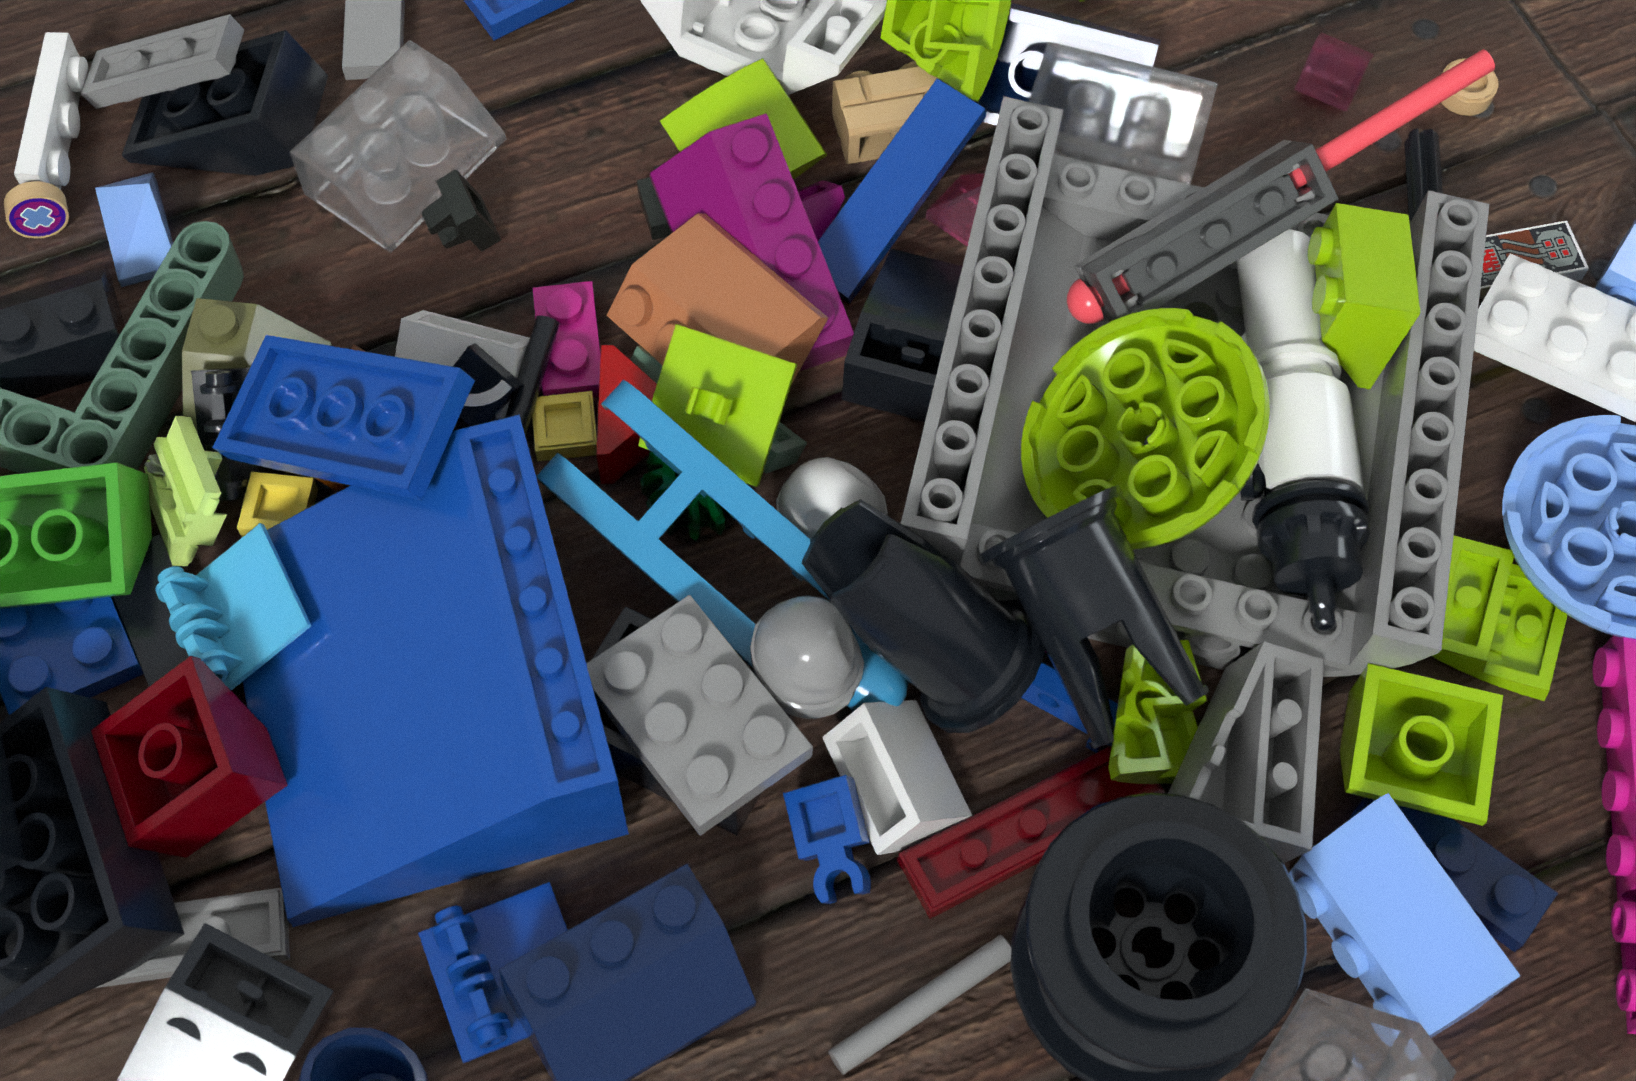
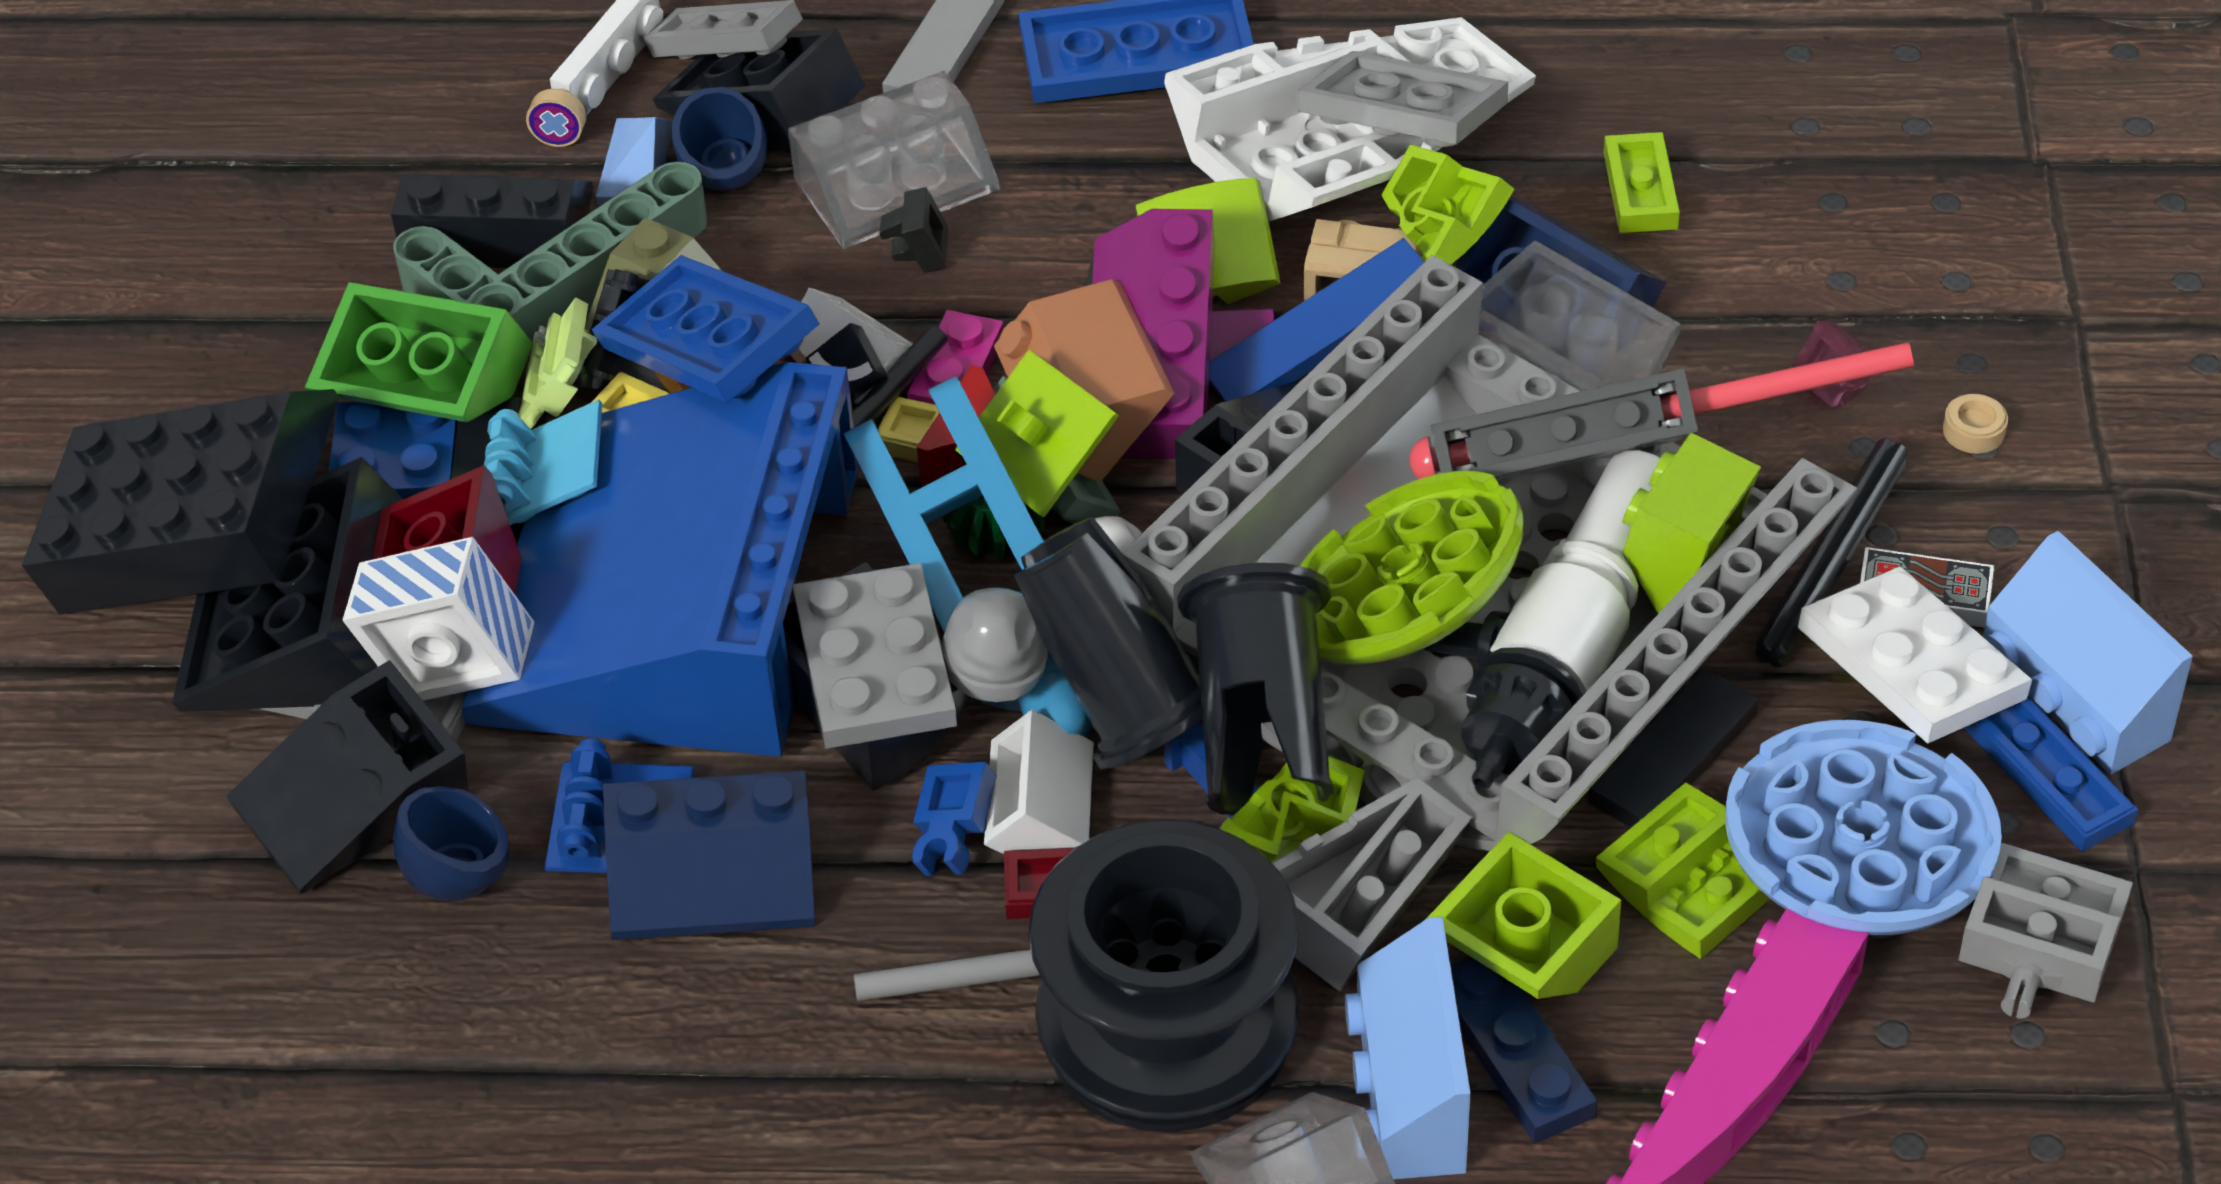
camera: 30 degrees right, 15 degrees down
(222, 181) = (720, 137): none -> dark blue hat
(229, 850) = (440, 618): none -> white container

